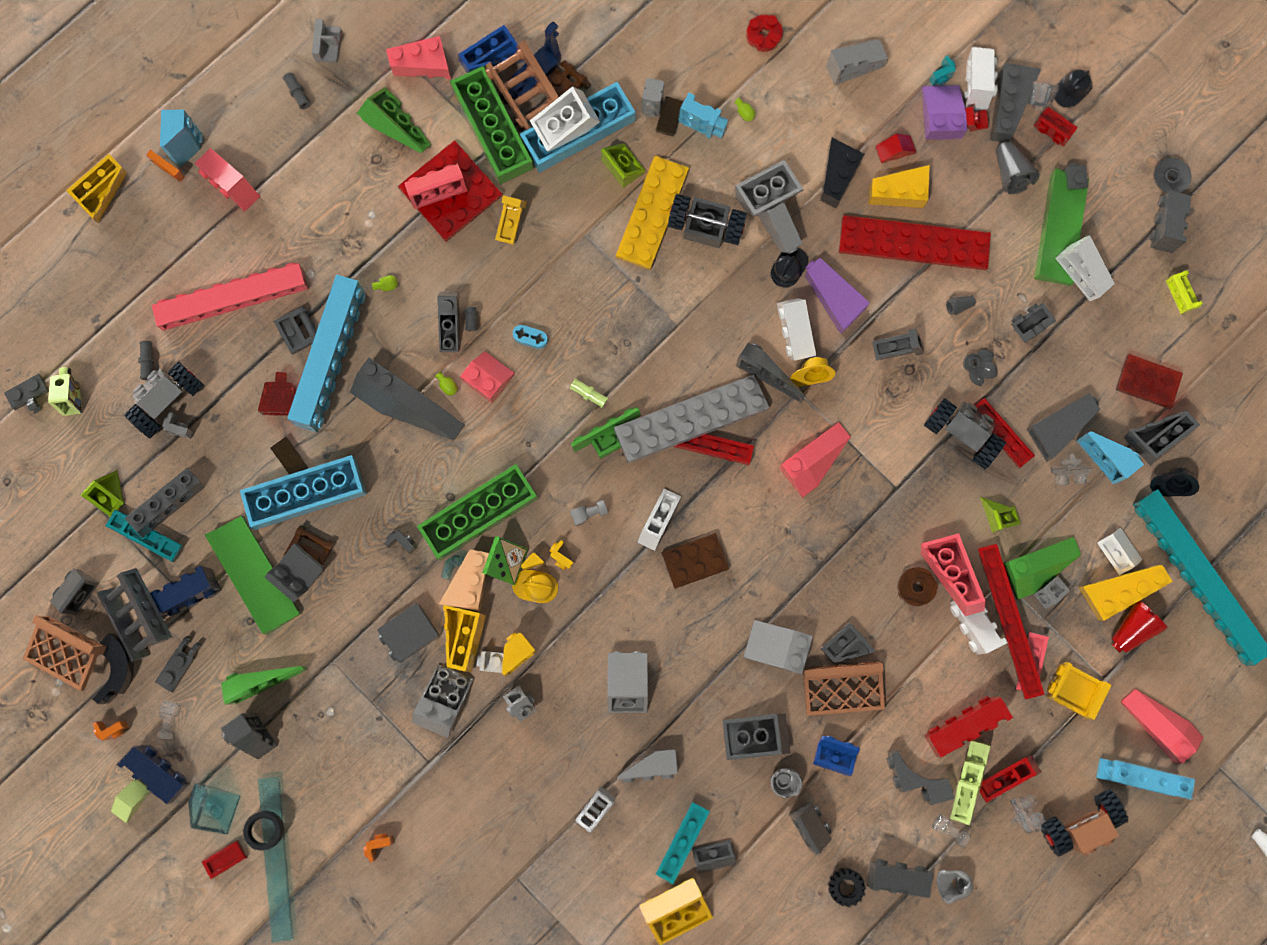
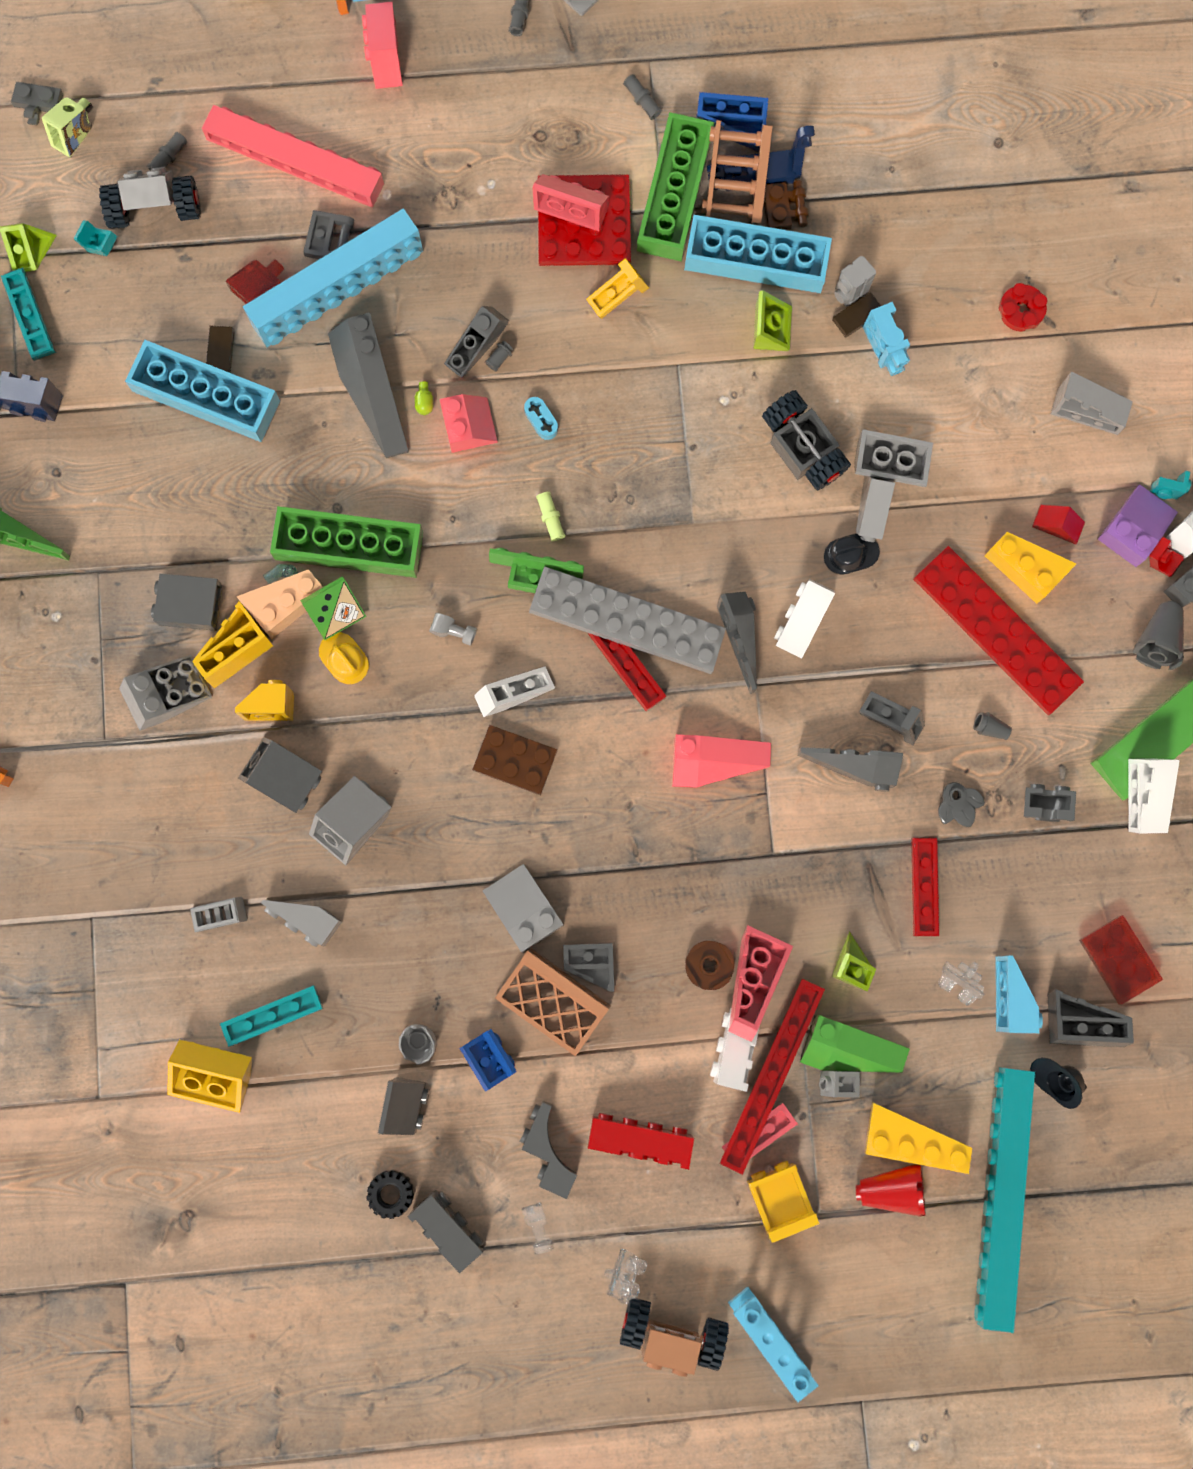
camera: 40 degrees right, 0 degrees up
(147, 452) = (95, 239): none -> teal bracket
(164, 502) = (69, 297): dark grey brick -> none
(175, 428) = (138, 232): light grey bracket -> none
(246, 568) = (92, 431): bright green arch -> none
(295, 573) = (130, 459): dark grey bracket -> none
(318, 556) = (158, 453): reddish brown plate -> none
(385, 114) = (584, 100): bright green wedge -> none
(386, 283) = (447, 259): lime cylinder -> none
(406, 541) = (258, 514): dark grey bracket -> none
(419, 59) = (661, 71): coral wedge -> none
(421, 84) = (642, 96): none -> dark grey pin
(490, 661) = (236, 689): white bracket -> none
(523, 706) = (231, 754): light grey brick -> none
(532, 561) = (359, 631): yellow slope -> none
(560, 691) = (280, 775): none -> dark grey slope
(561, 561) = (387, 653): yellow bracket -> none
(564, 119) = (748, 233): white slope -> none
(651, 213) = (745, 400): yellow plate -> none
(714, 856) = (290, 1055): dark grey slope -> none
(745, 110) = (938, 367): lime cylinder -> none
(756, 736) = (428, 976): dark grey slope -> none
(813, 371) = (784, 672): yellow piece -> none
(835, 294) = (874, 617): medium lavender slope -> none
(839, 170) = (981, 500): black wedge -> none
(912, 389) = (872, 769): none -> dark grey wedge
(945, 886) = (486, 1279): light grey hair -> none
(970, 428) = (893, 852): brick -> none
(970, 782) = (598, 1198): yellowish green slope -> none
(1009, 778) = (639, 1227): red slope -> none
(1060, 428) = (988, 929): dark grey slope -> none
(1120, 551) = (944, 1102): white panel -> none
(1169, 730) = (841, 1318): coral wedge -> none

